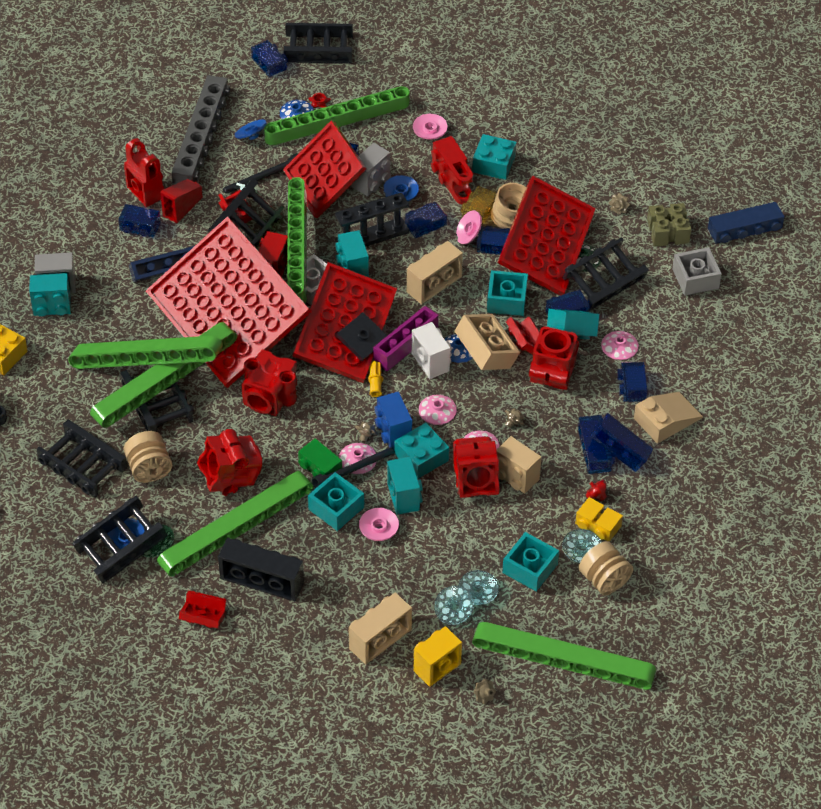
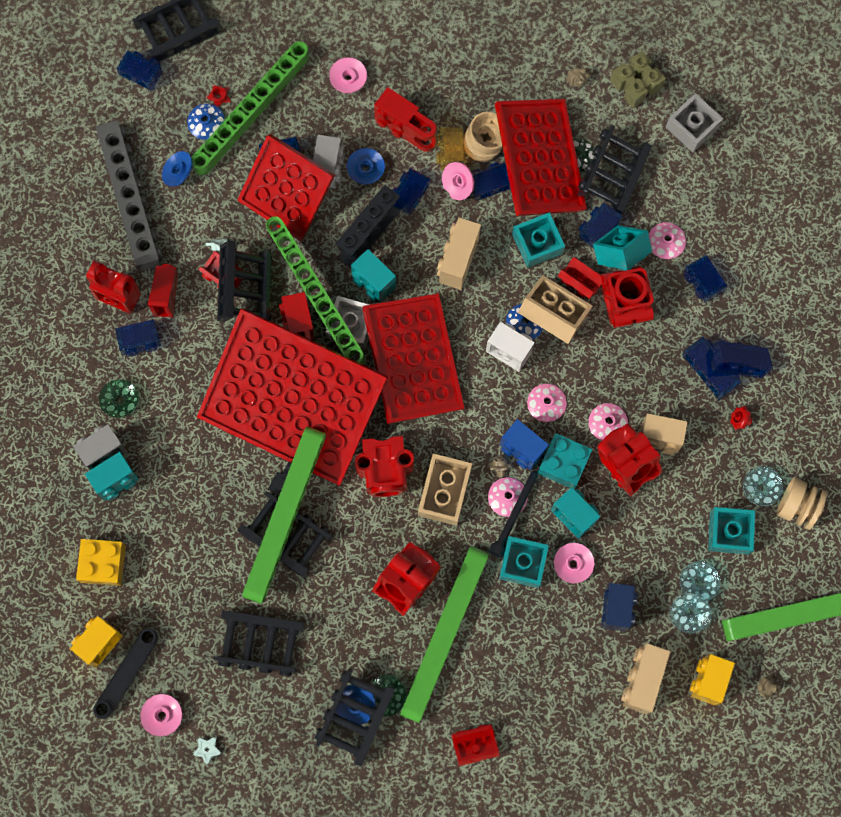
camera: 30 degrees left, 25 degrees up
(94, 252) = (110, 394): none -> clear green dish
(145, 352) = (255, 503): bright green beam -> none
(147, 456) = (324, 611): tan wheel -> none
(155, 265) = (195, 380): dark blue brick -> none
(261, 569) = (504, 676): black brick -> none
(275, 169) = (220, 217): black piece -> none
(307, 420) = (444, 489): none -> tan brick
(318, 459) = (479, 523): green brick -> none
(361, 336) = (439, 367): black plate -> none
(375, 379) = (473, 401): yellow axle -> none
(392, 567) = (618, 607): none -> dark blue brick
(399, 342) = (477, 343): magenta brick -> none
(494, 156) = (431, 81): teal brick -> none
(514, 417) = (623, 377): dark tan plant -> none
(604, 524) = (756, 450): yellow piece -> none
(665, 415) = (754, 300): tan slope -> none
(745, 222) = (704, 39): dark blue brick -> none

